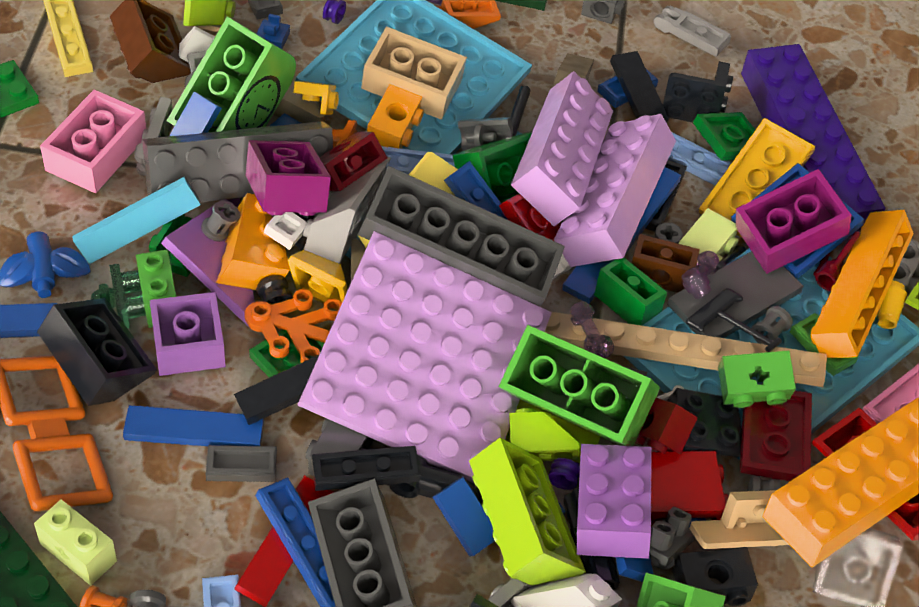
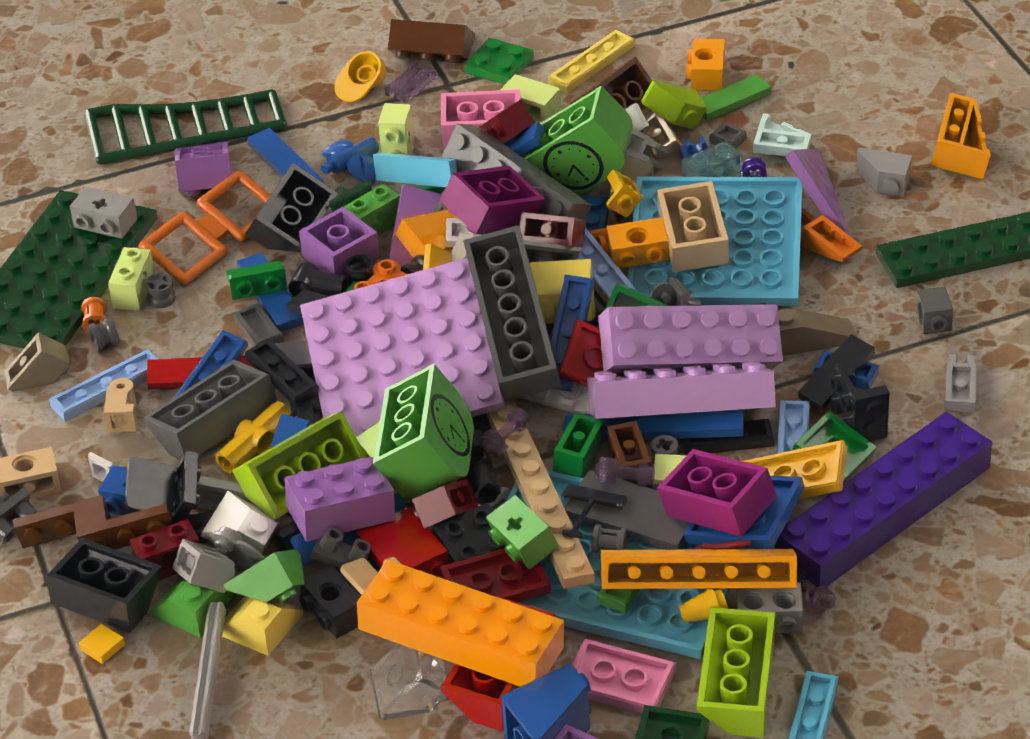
camera: 70 degrees right, 10 degrees down
(59, 209) = (396, 129): none -> yellowish green brick
(75, 90) = (538, 98): none -> yellowish green brick
(114, 515) = (160, 290): none -> dark grey wheel
(160, 115) = (508, 122): none -> dark red brick
(180, 427) = (257, 280): none -> green bracket
(215, 386) = (312, 279): none -> black piece
(239, 337) = (359, 268): none -> black wheel
(312, 30) = (715, 161): none -> clear light blue brick
(424, 541) = (251, 437): none -> yellow piece

